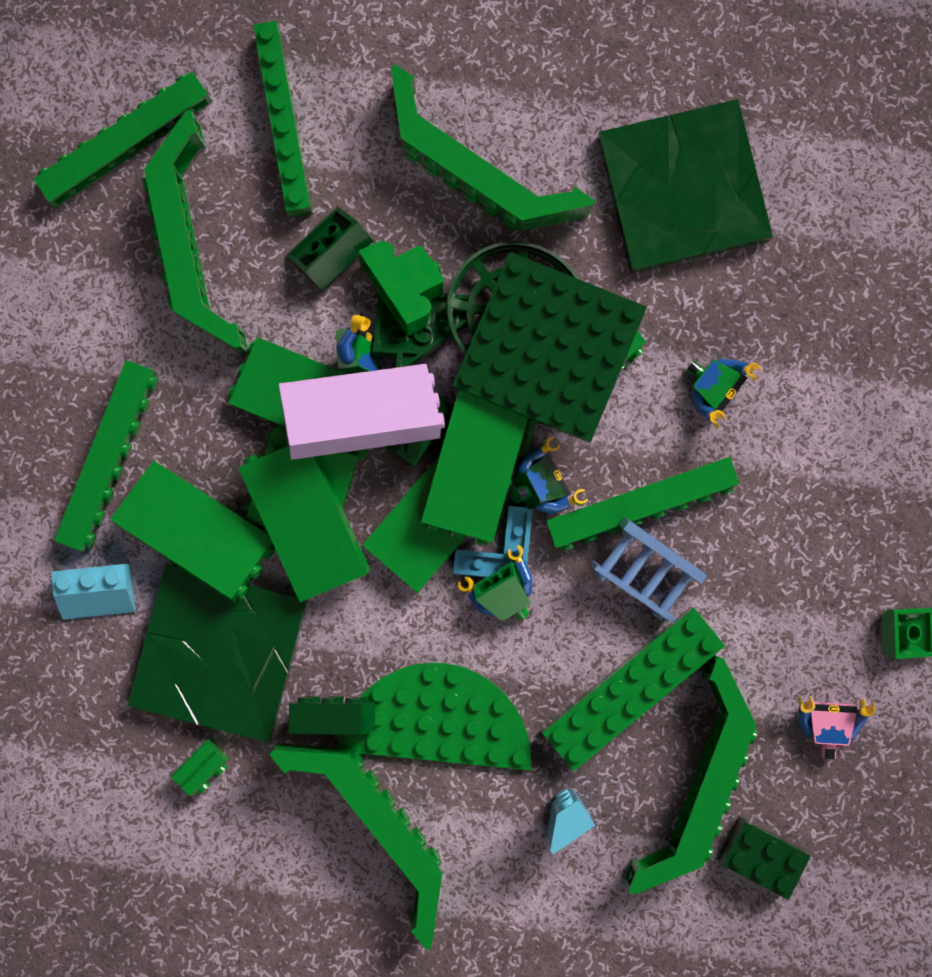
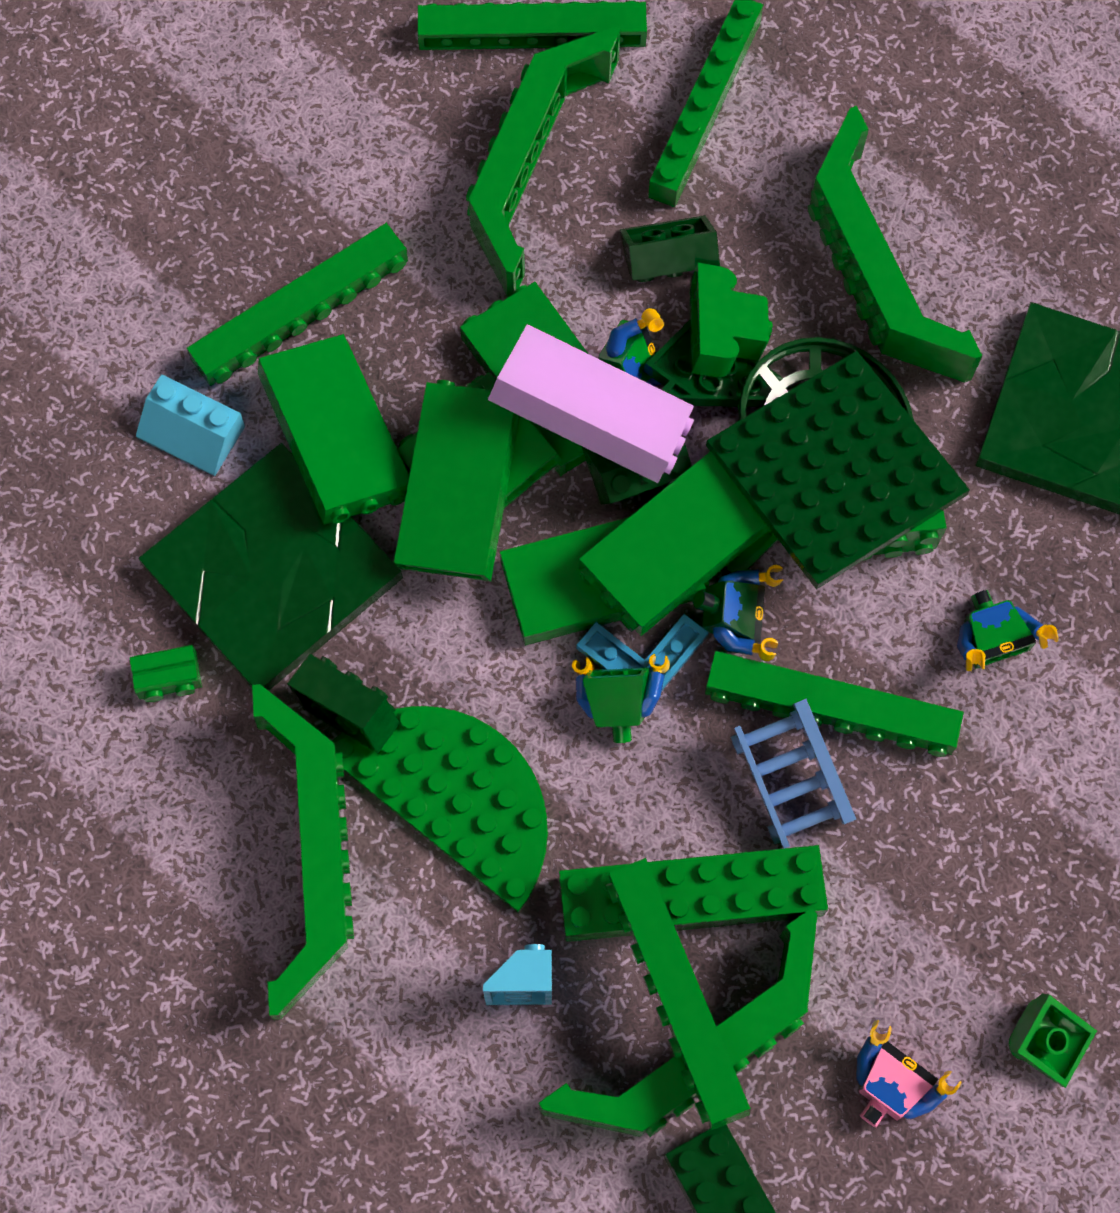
camera: 30 degrees right, 15 degrees down
(672, 770) = (679, 995): none -> green brick

